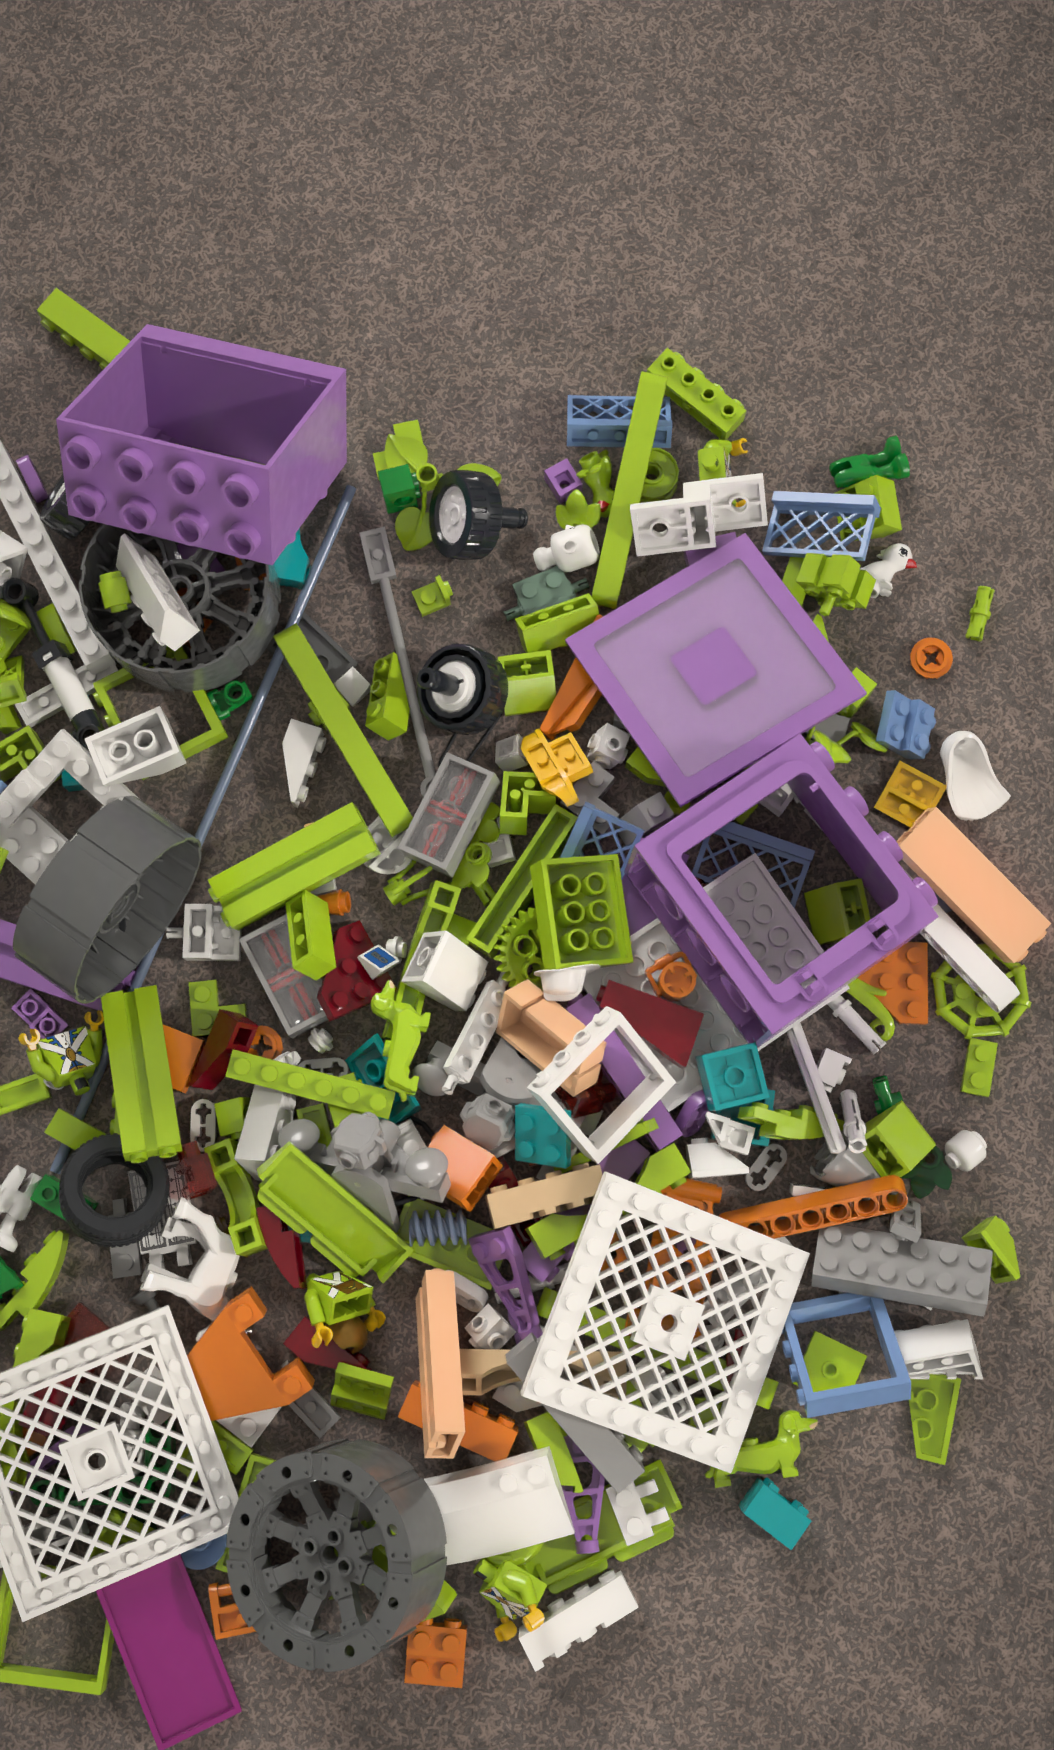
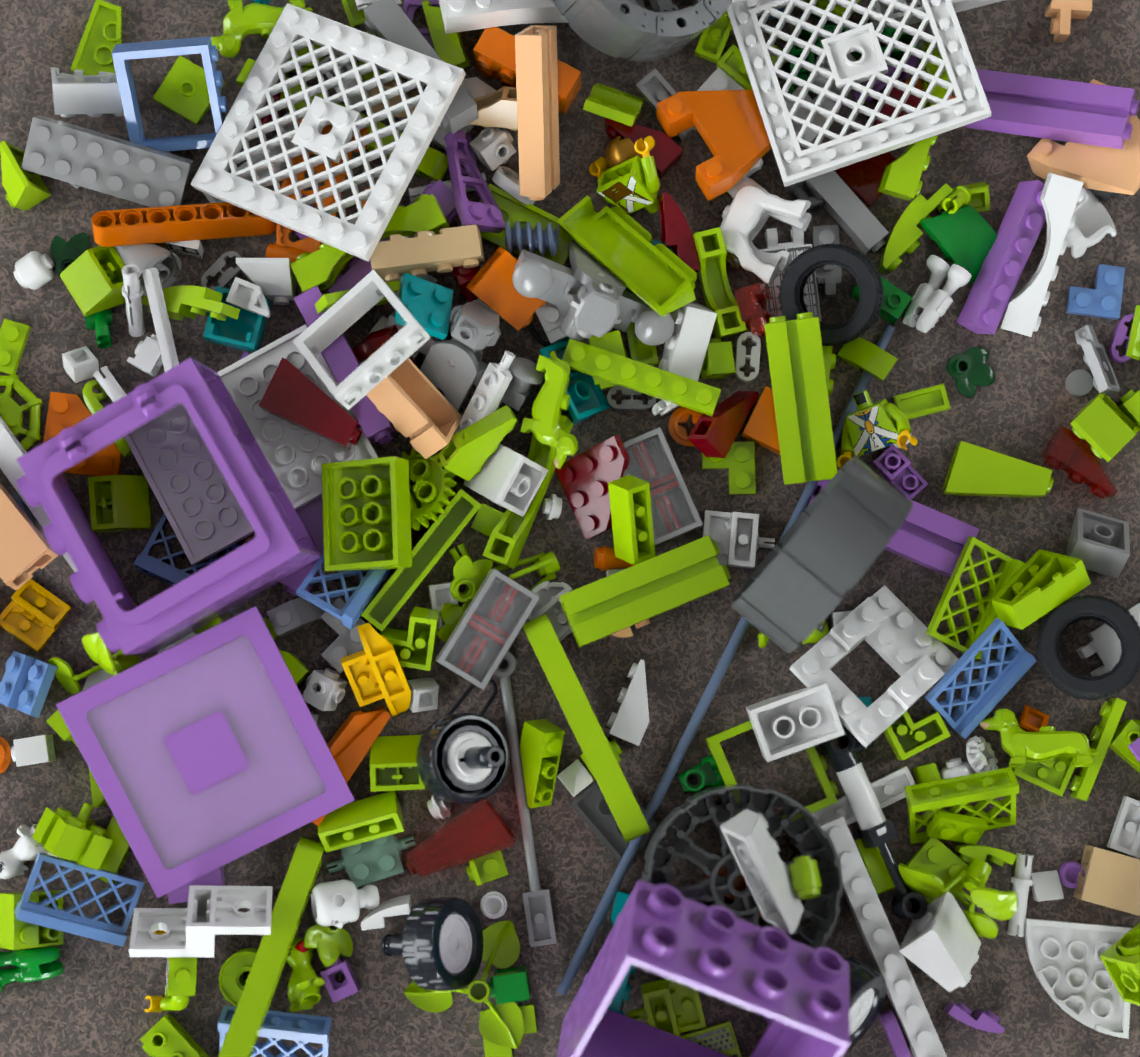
camera: 175 degrees left, 5 degrees up
(98, 1288) = (848, 211): none -> light grey brick
(321, 1040) = (631, 426): white plate -> none
(377, 961) = (569, 493): slope -> none
(423, 563) = (493, 904): none -> white plate
(458, 614) = (463, 839): none -> clear red slope
(474, 999) = (475, 443): none -> lime slope
(485, 643) = (439, 808): none -> white plate
(523, 550) = (392, 907): none -> white slope
(564, 983) = (389, 444): white piece -> none
(675, 979) = (284, 444): orange piece -> none
(692, 1114) = (282, 324): medium lavender beam -> none
(732, 1077) = (240, 346): teal container -> none
(888, 663) = (33, 750): none -> white brick
(901, 1055) = (80, 364): none -> white slope
(907, 1222) = (96, 199): light grey plate -> none

